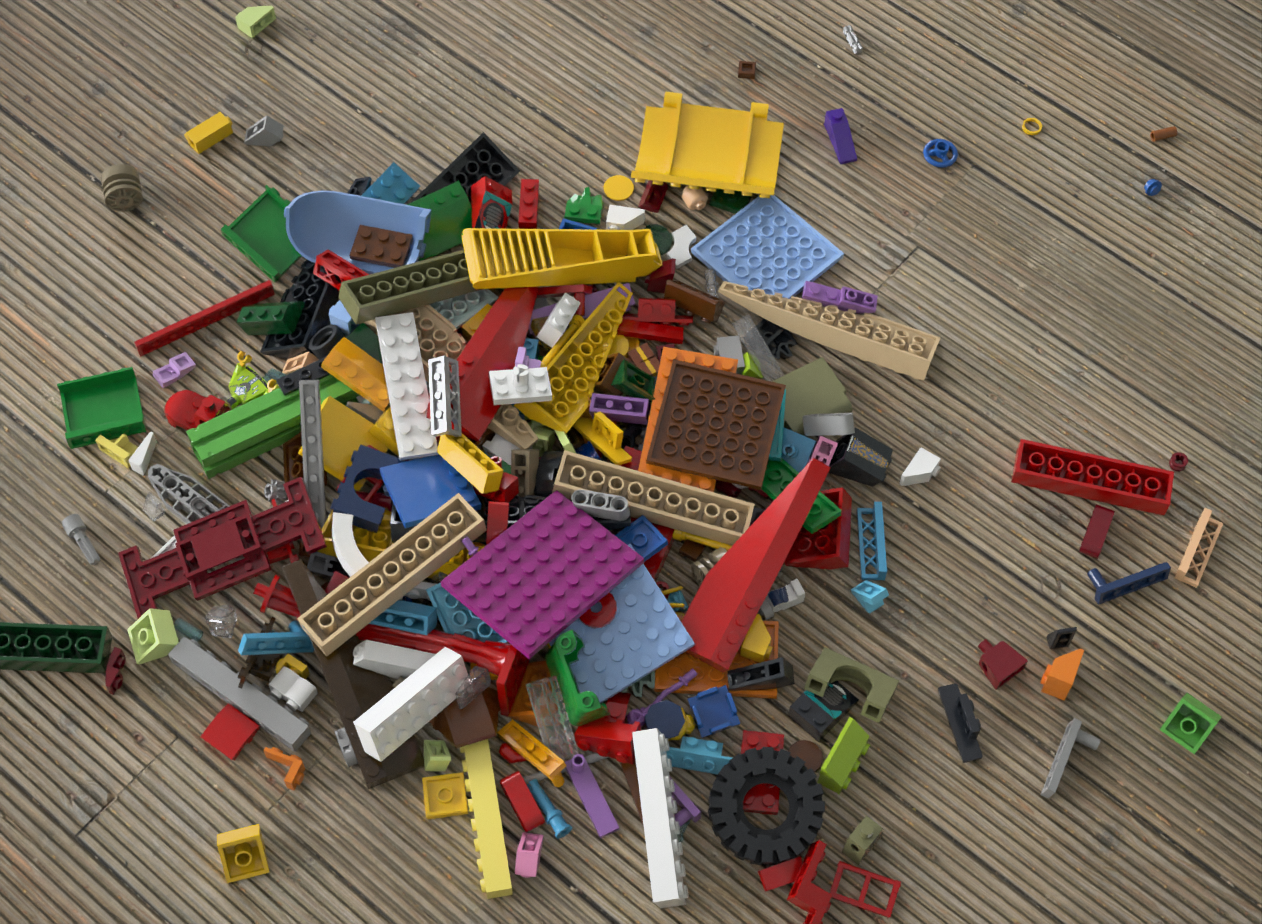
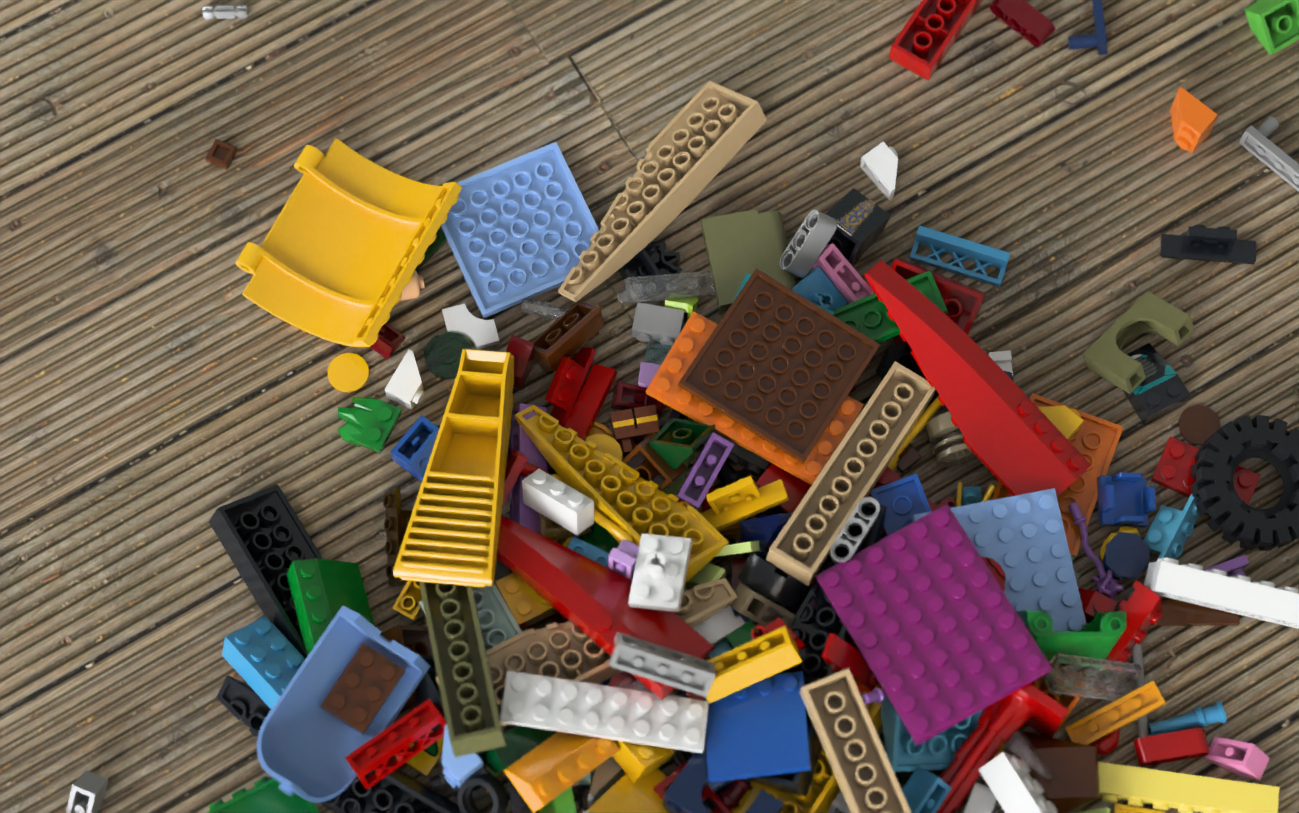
camera: 70 degrees left, 10 degrees up
(490, 204) = (335, 537): slope -> none
(529, 204) = (344, 490): red brick -> none
(591, 796) = (1187, 668): medium lavender piece -> none
(760, 676) = (1102, 433): black slope -> none
(840, 135) = (375, 81): dark purple slope -> none
(844, 757) = (1219, 383): lime slope -> none
(845, 298) = (620, 168): medium lavender slope -> none
(870, 595) = (1028, 282): medium azure slope -> none
(1000, 662) = (1152, 180): dark red torso -> none
(1061, 638) = (1142, 105): black slope -> none

